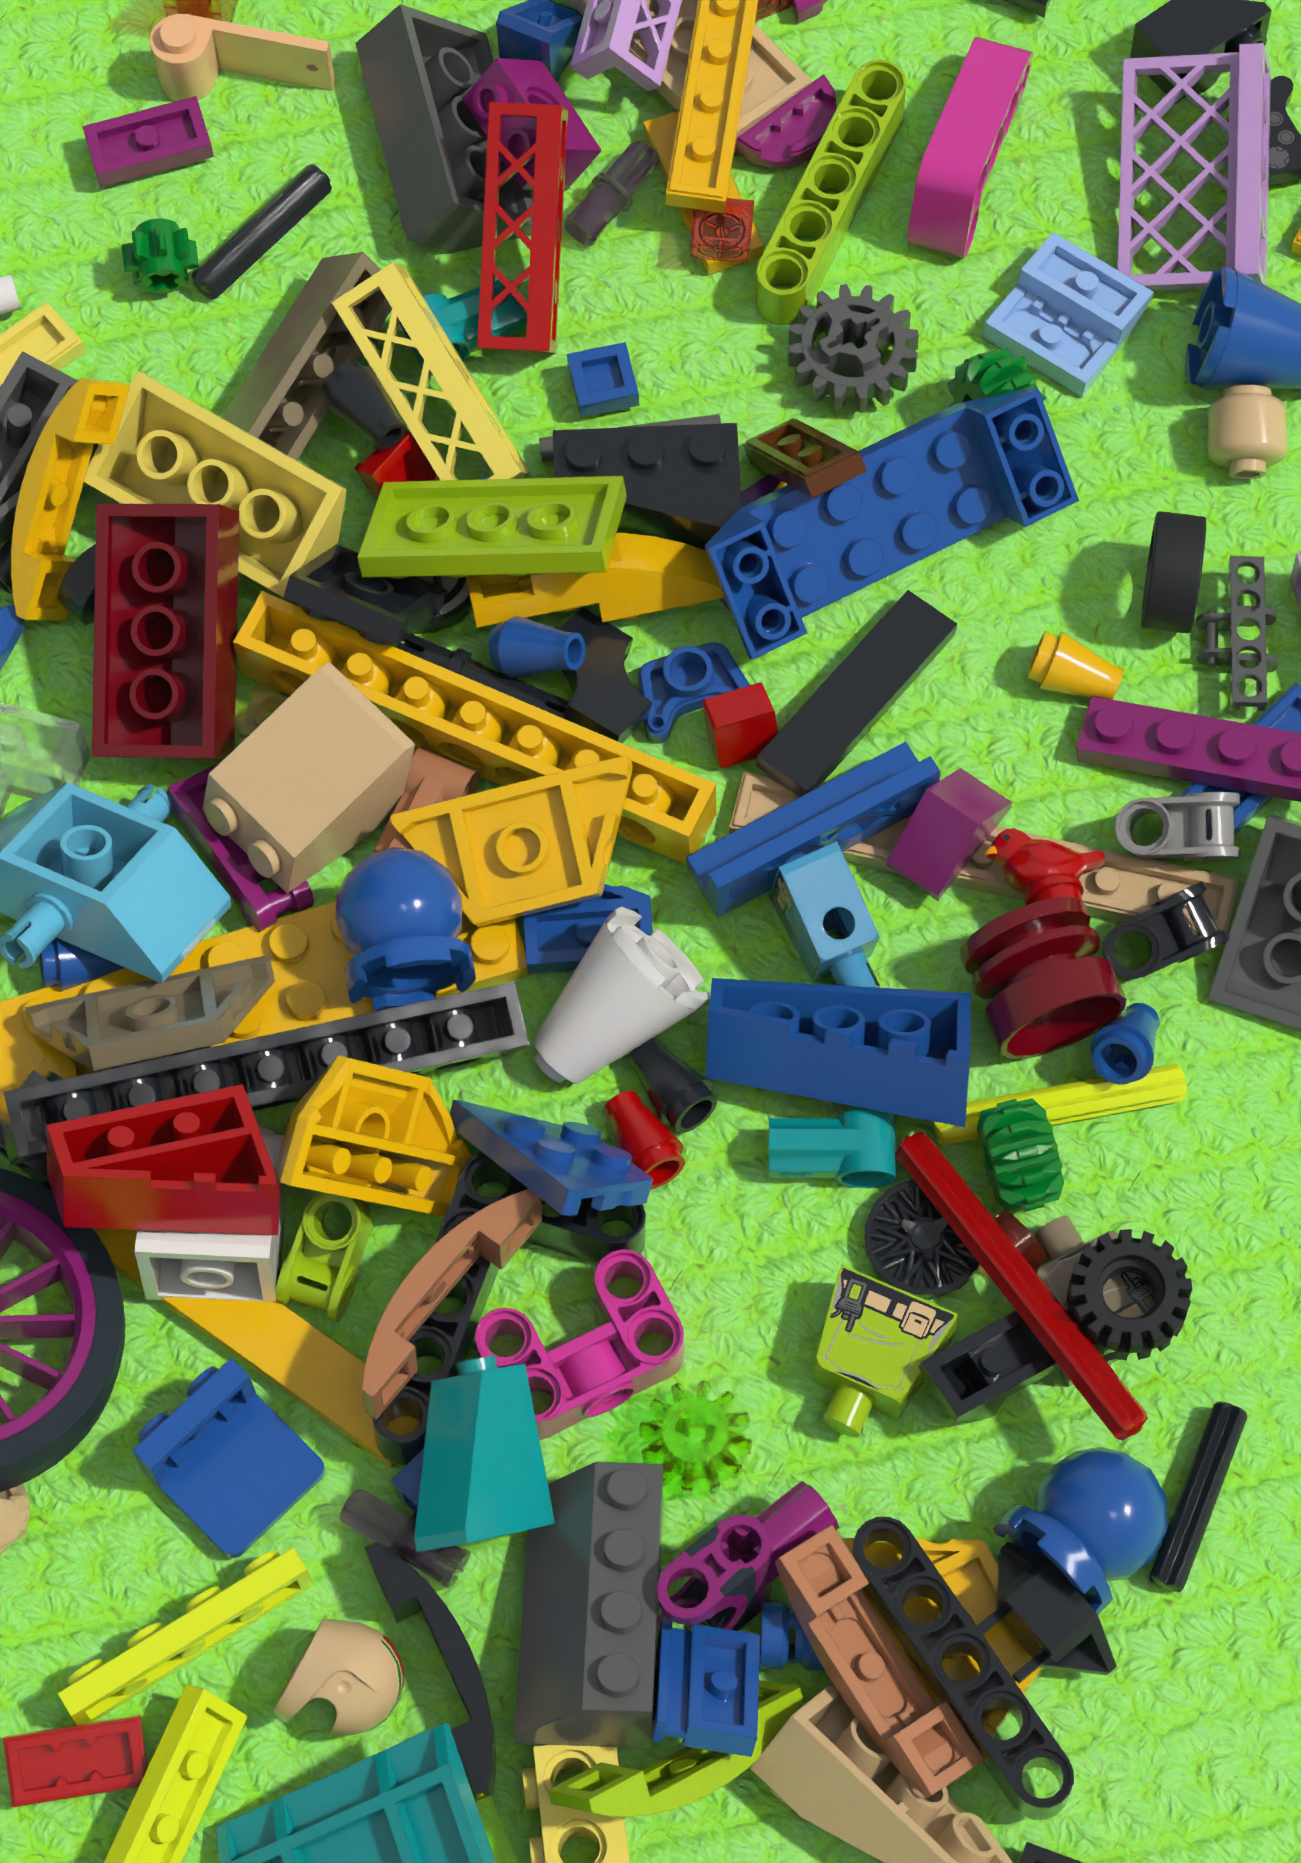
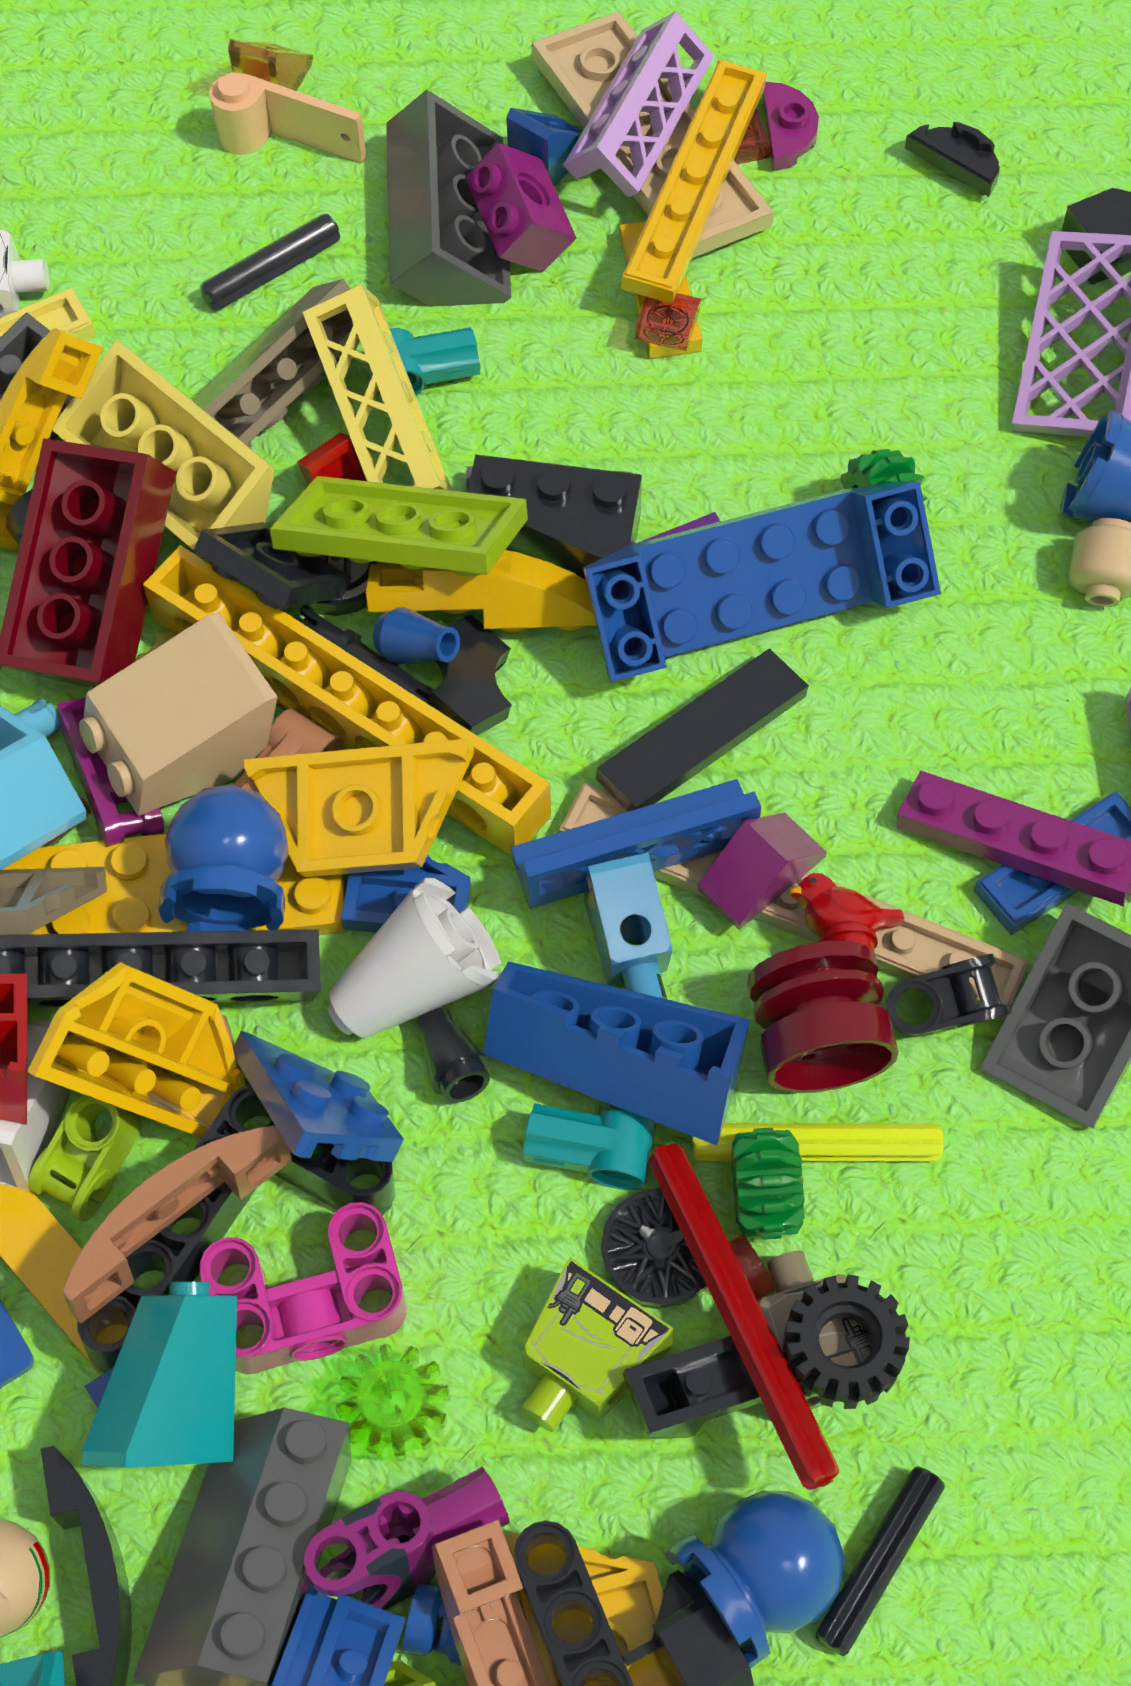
camera: 10 degrees right, 5 degrees down
(148, 141) = (192, 175): magenta plate -> none
(160, 256) = (175, 264): green gear -> none
(362, 403) = (312, 404): black cone -> none
(396, 1532) = (69, 1429): axle -> none
(545, 230) = (509, 285): red fence -> none
(603, 379) = (534, 426): blue plate -> none
(611, 193) = (578, 277): axle -> none
(645, 1138) = (412, 1103): red cone -> none
(683, 681) = (552, 696): blue piece -> none
(739, 724) = (587, 737): red piece -> none
(792, 130) = (750, 251): magenta plate -> none
(804, 457) = (696, 513): reddish brown tile -> none
(836, 168) = (770, 305): lime beam -> none
(850, 354) = (762, 435): dark grey gear -> none
(966, 146) = (895, 284): dark pink beam -> none
(1067, 314) = (963, 438): light blue slope -> none
(1071, 668) = (907, 742): yellow cone -> none
(1126, 1046) = (891, 1097): blue cone -> none
(1173, 572) = (1017, 670): black tyre -> none
(1185, 827) = (994, 901): light grey piece -> none
(1241, 664) = (1072, 723): dark grey piece -> none

